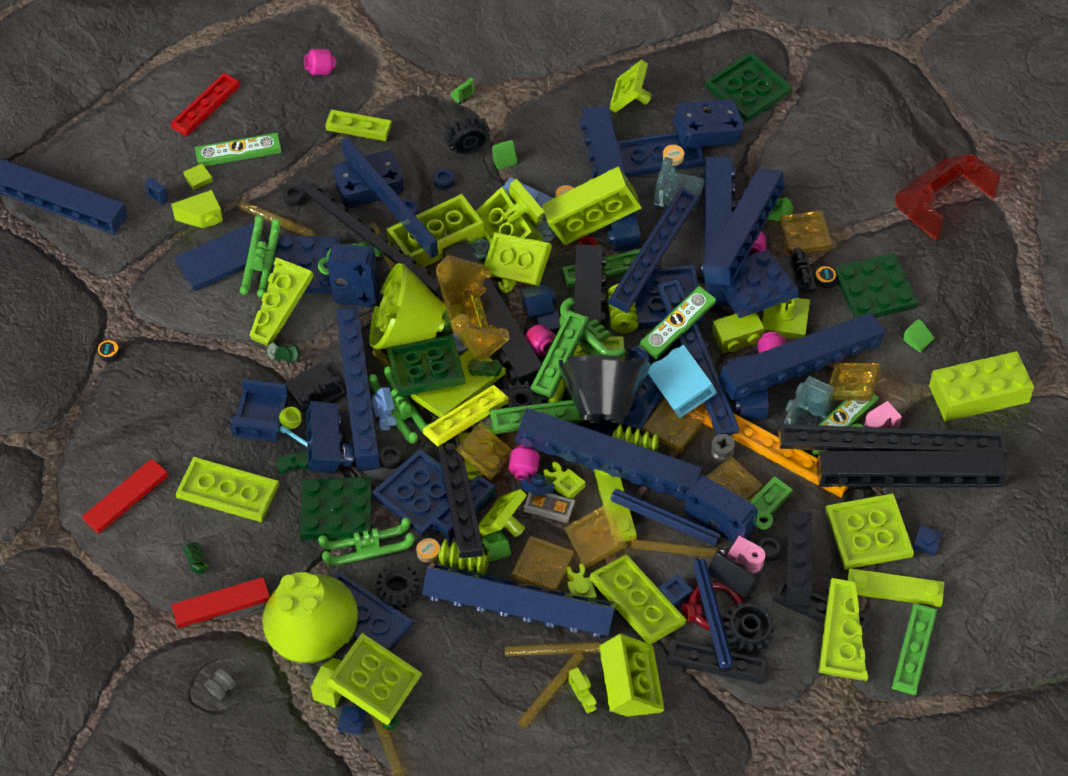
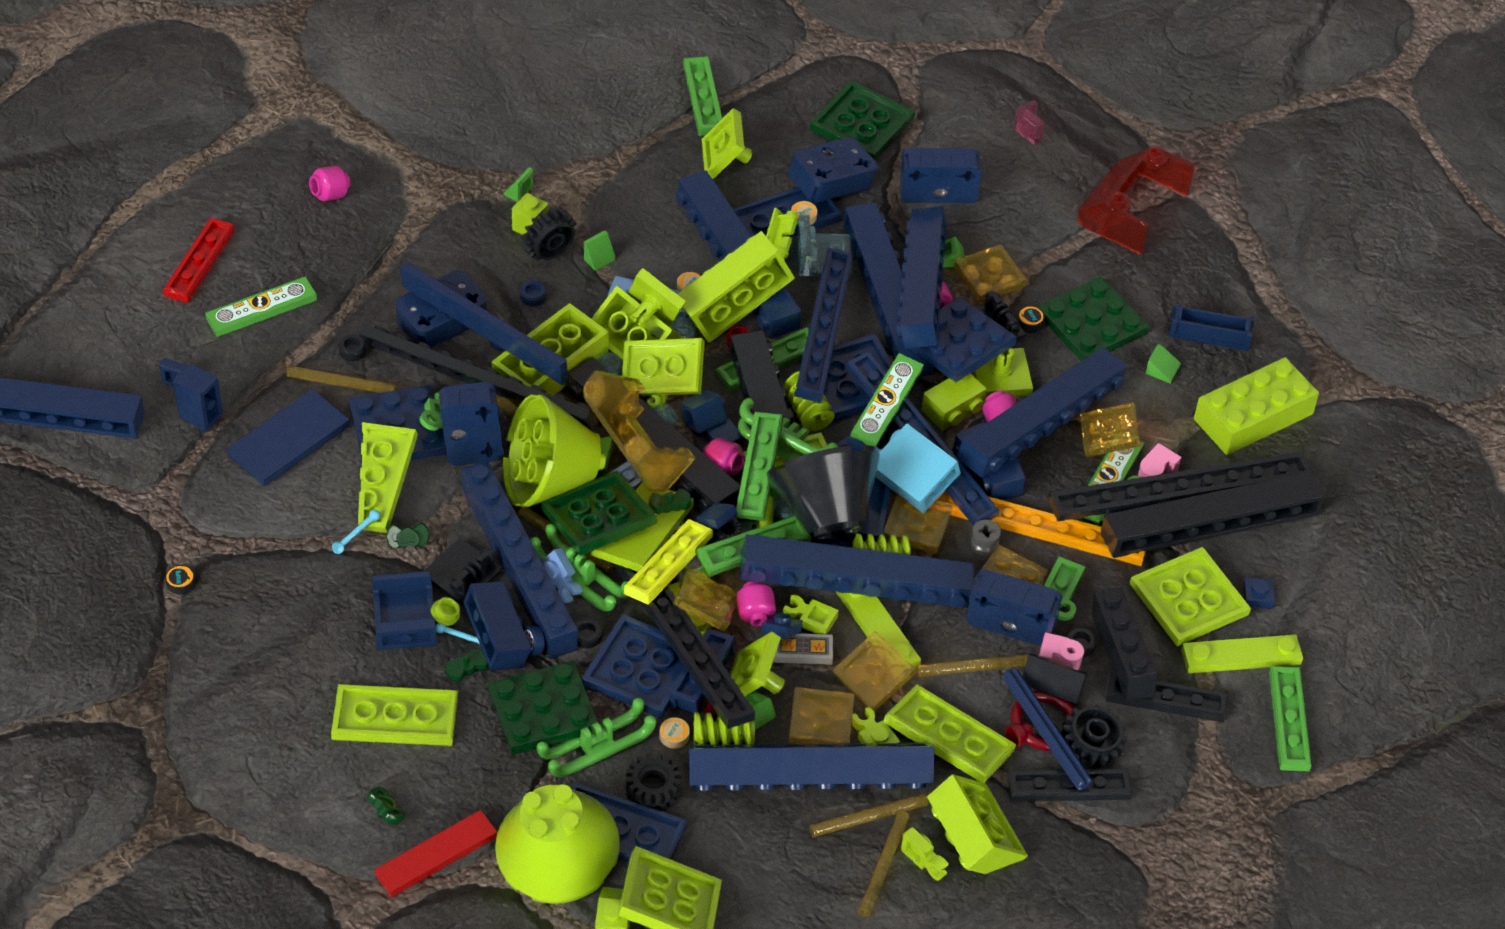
camera: 20 degrees left, 5 degrees down
(125, 496) = (265, 751): red tile -> none
(164, 213) = (198, 397): none -> dark blue brick
(198, 176) = (221, 348): lime tile -> none
(198, 210) = (244, 386): lime slope -> none
(231, 349) = (338, 547): none -> medium azure hinge
(260, 258) = (341, 428): bright green piece -> none
(358, 125) = (404, 249): lime plate -> none
(458, 110) = (525, 210): none -> lime brick
(509, 297) = (667, 413): none -> clear light blue plate
(515, 386) = (717, 515): none -> dark blue tile
(629, 41) = (702, 93): none -> bright green plate
(645, 170) = (779, 228): none -> lime hinge
(665, 517) = (947, 630): dark blue axle -> none
(676, 590) = (992, 712): dark blue plate -> none
(791, 144) = (940, 175): none -> dark blue axle
(811, 396) = (1074, 460): clear light blue bracket -> none
(842, 641) = (1205, 723): lime wing -> none
(881, 112) = (1028, 123): none -> clear pink bracket
(970, 313) = (1211, 328): none -> dark blue container

